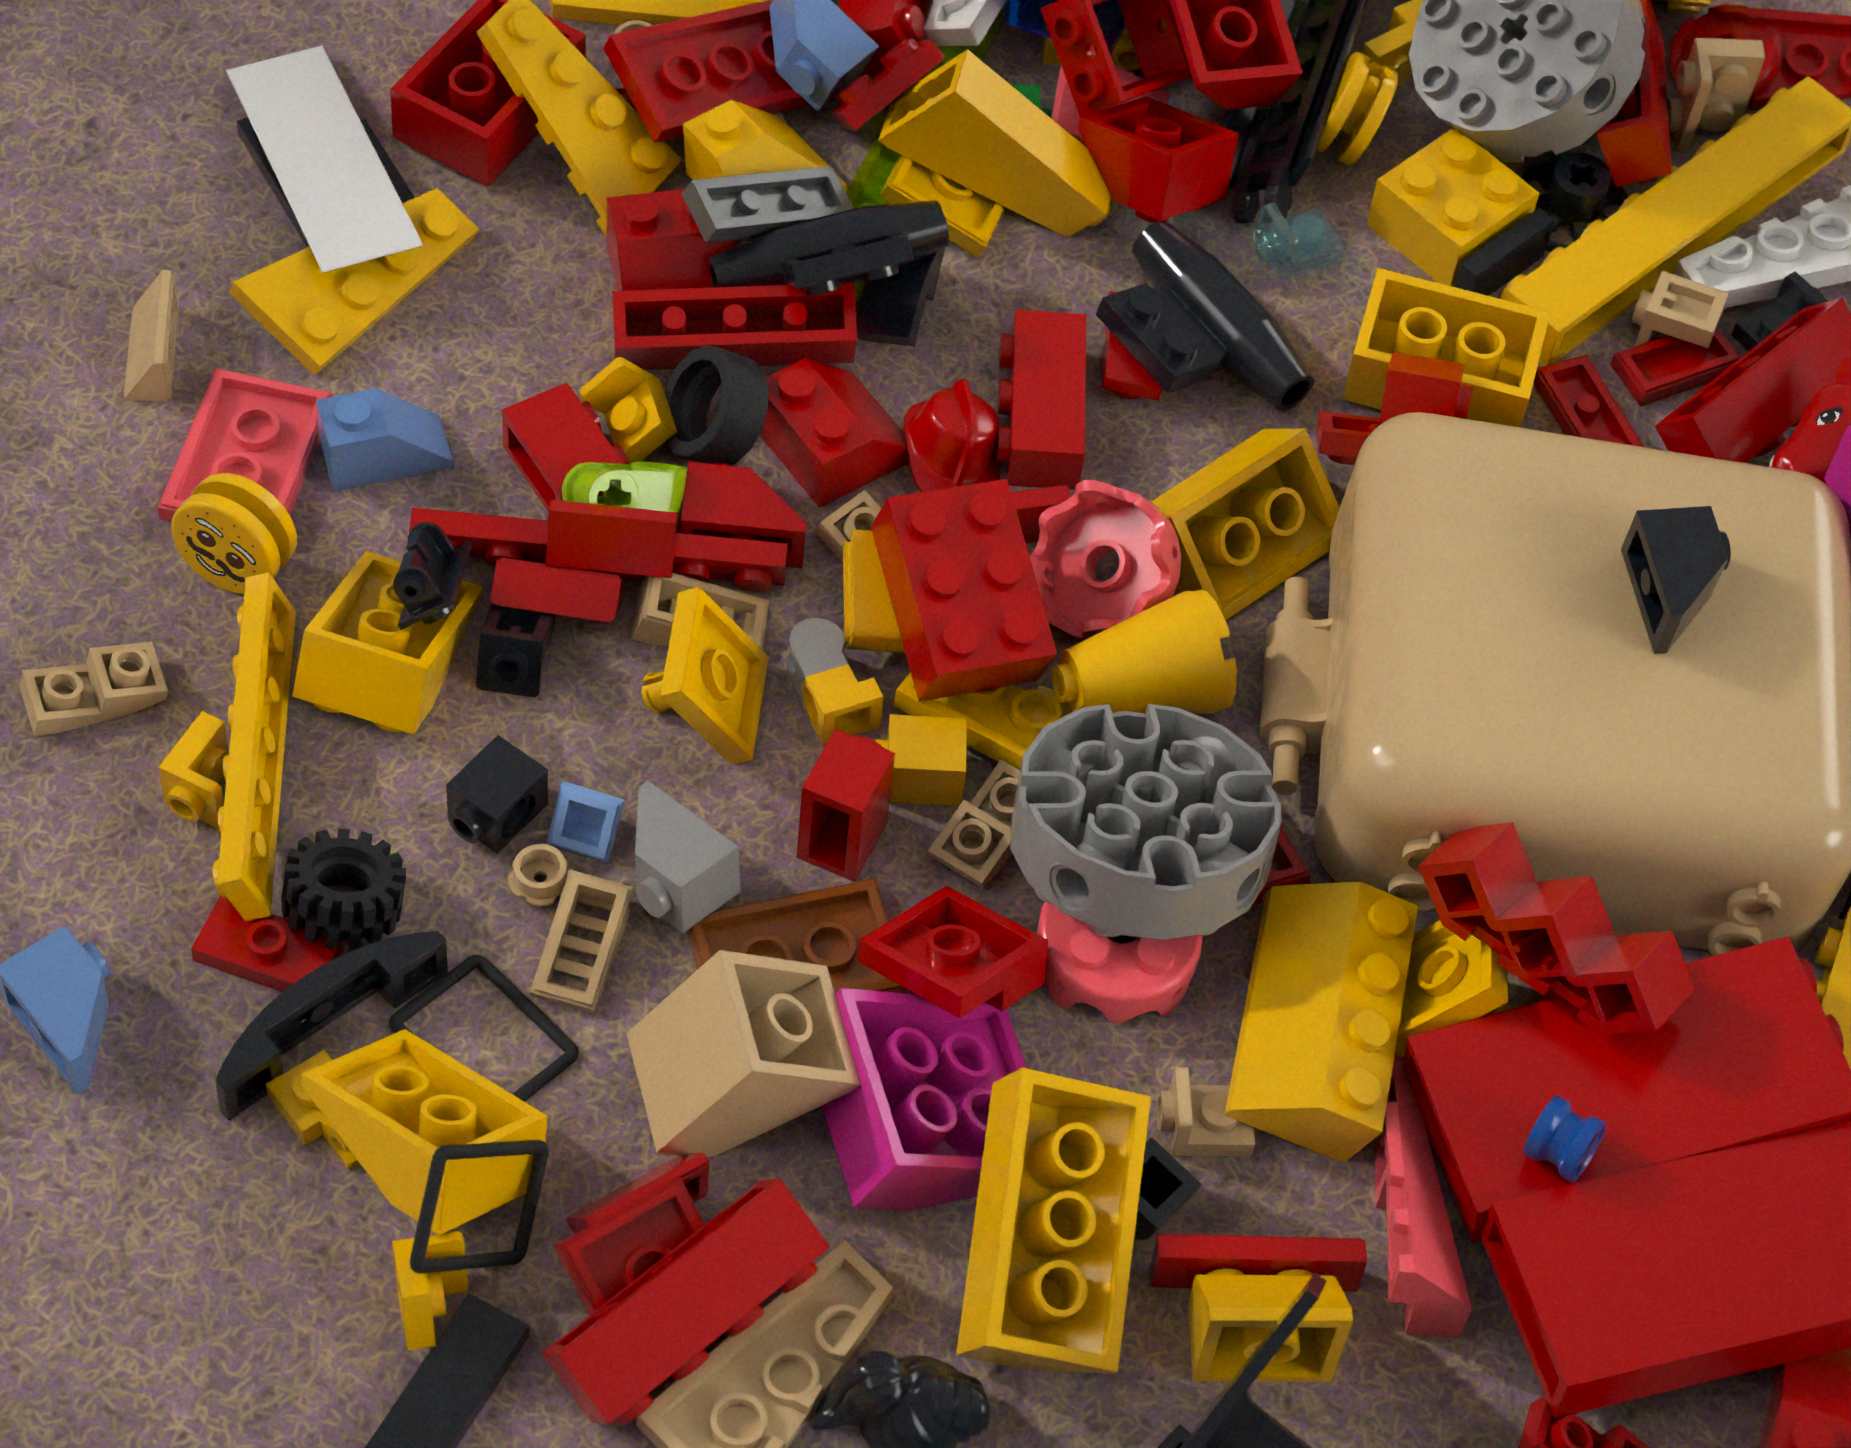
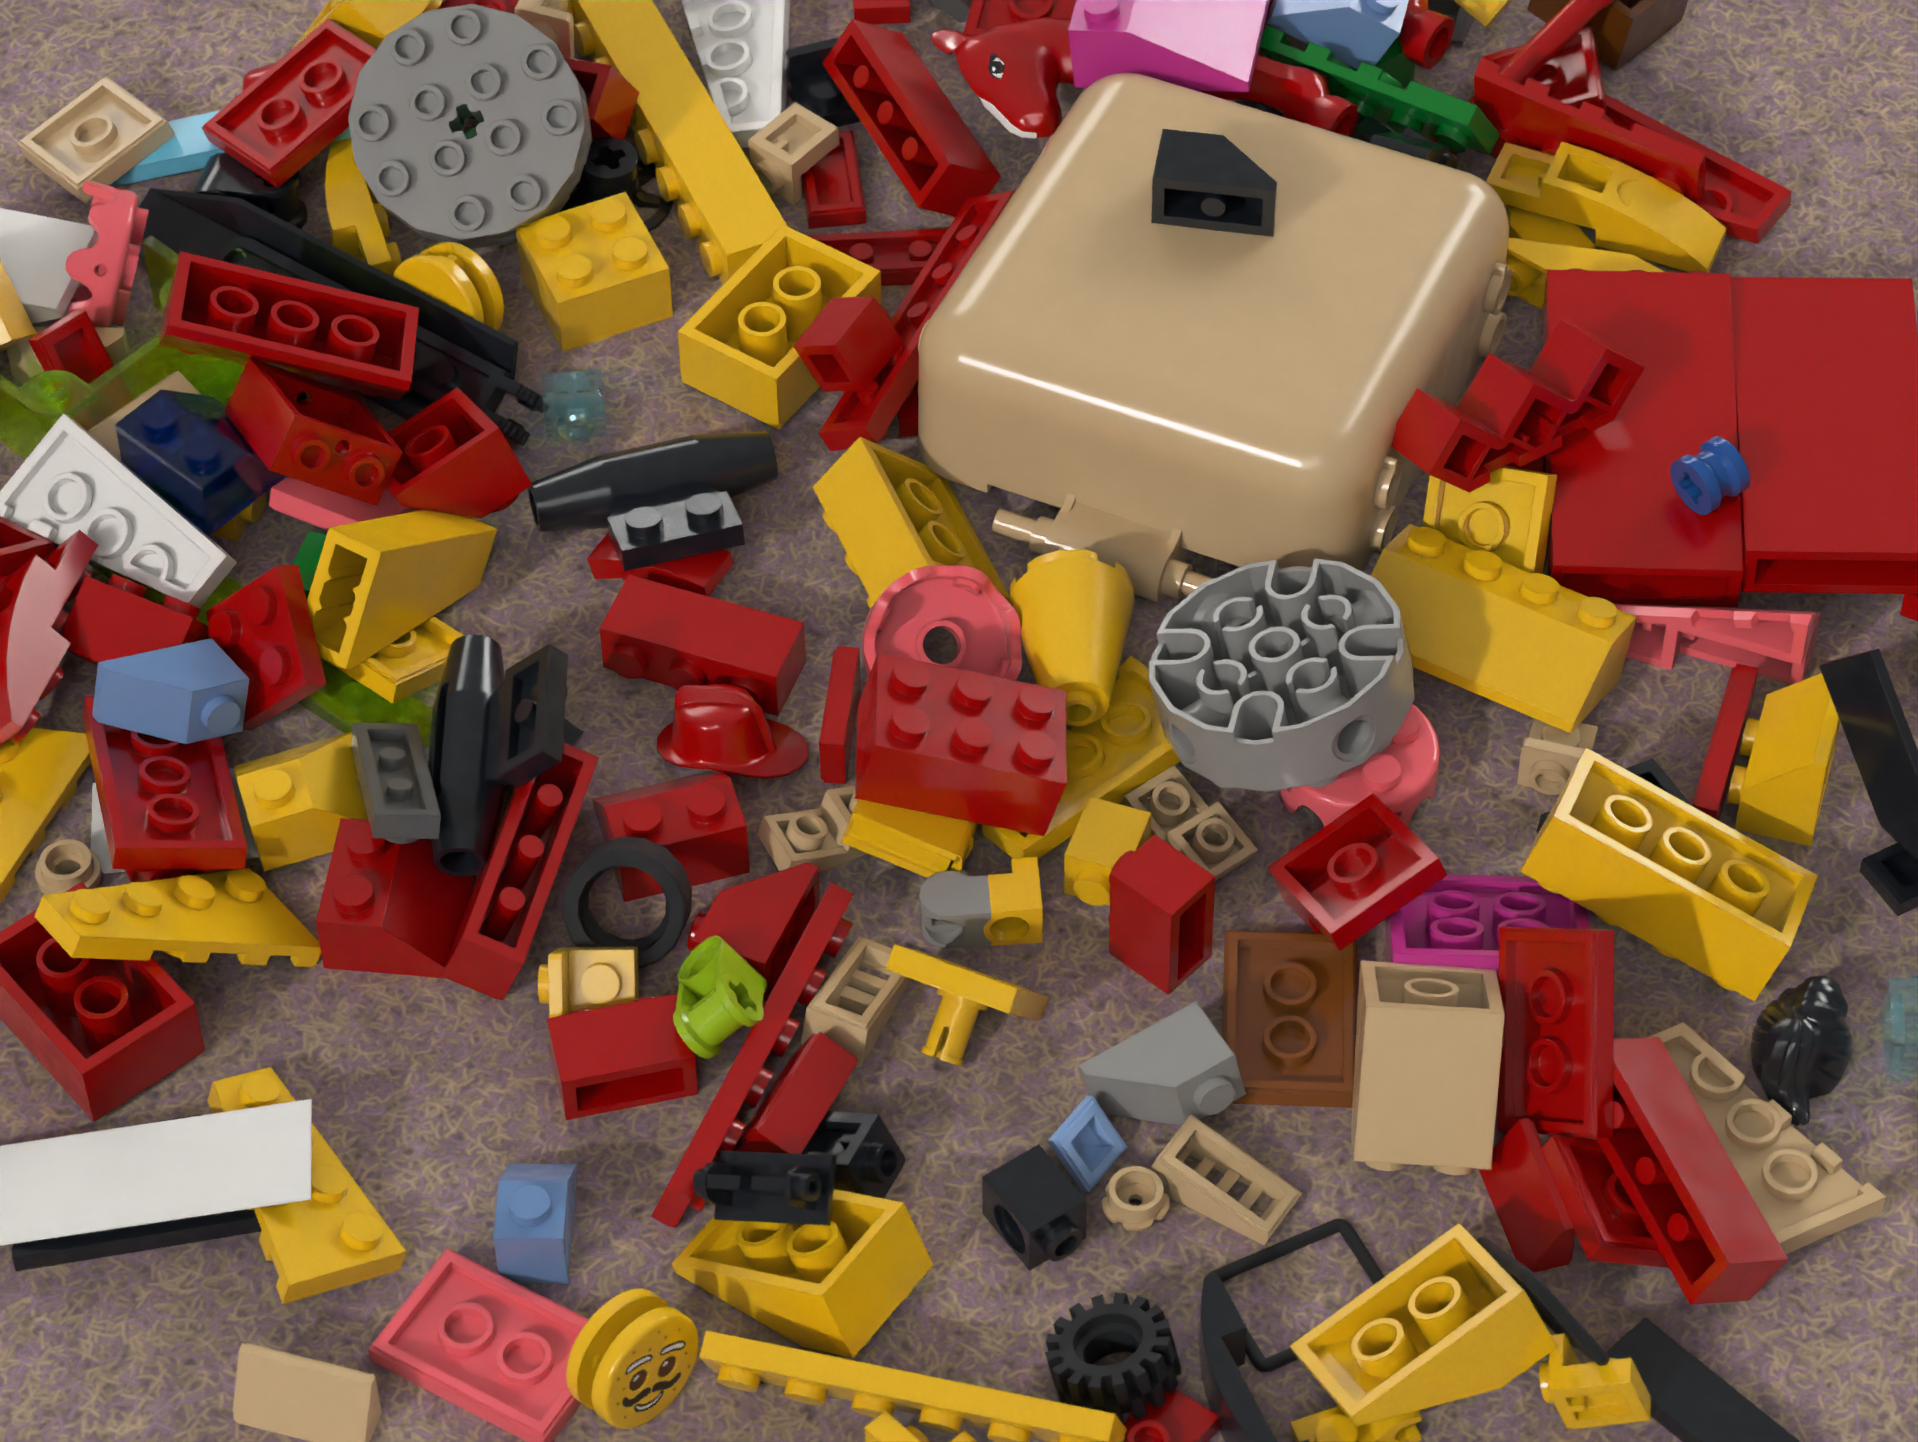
camera: 65 degrees left, 5 degrees down
(611, 538) = (784, 1017): red tile -> none
(791, 1144) = (1557, 1030): none -> red tile
(1506, 255) = (684, 272): black tile -> none

